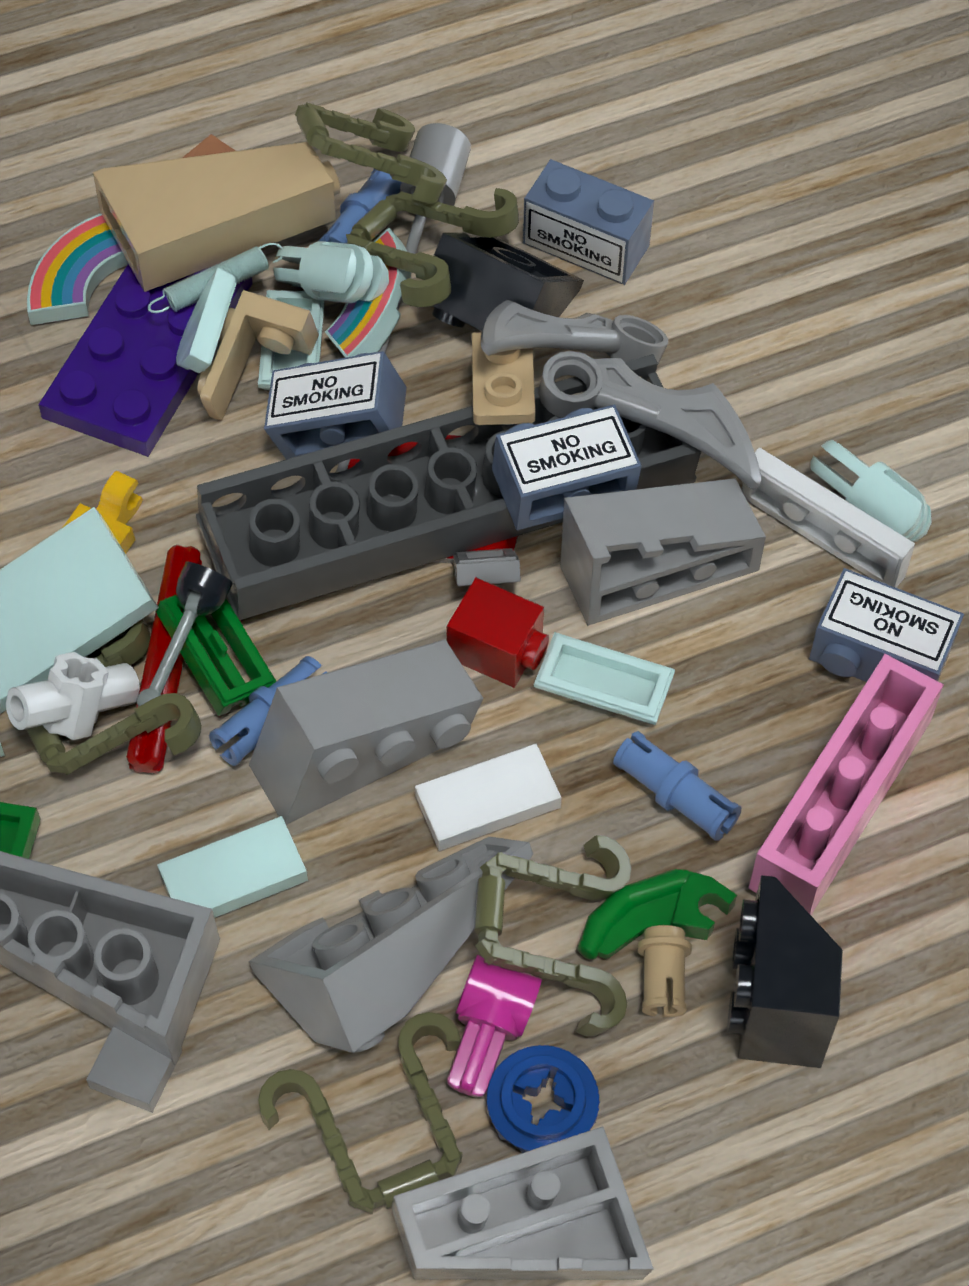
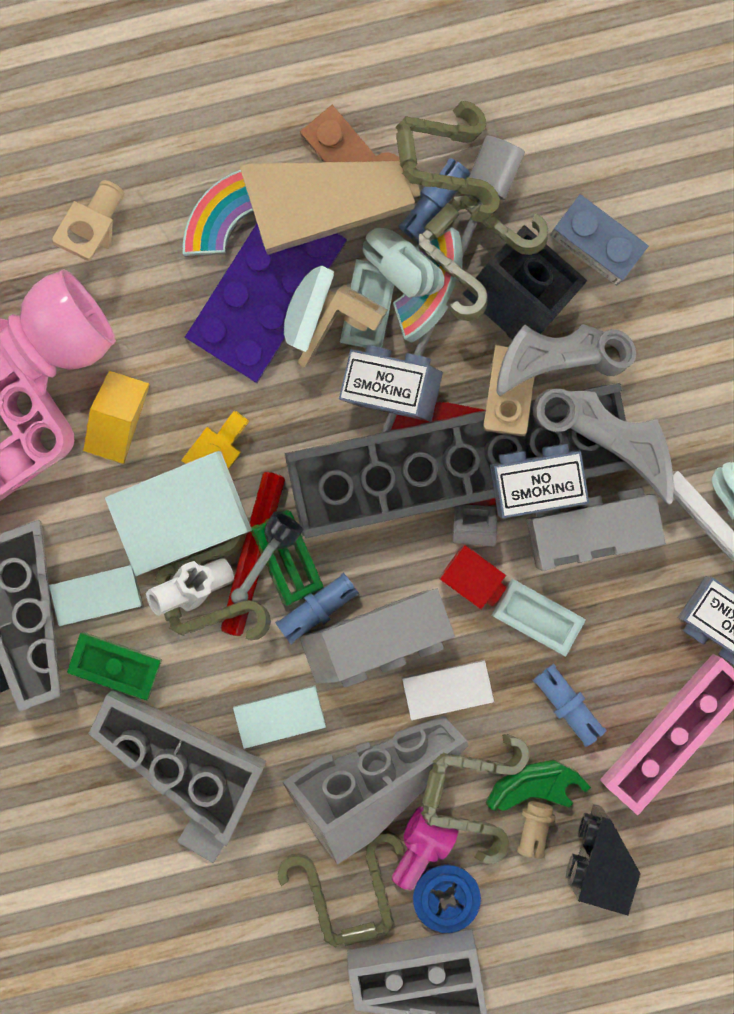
camera: 10 degrees right, 30 degrees up
(241, 266) = (320, 257): light aqua piece -> none

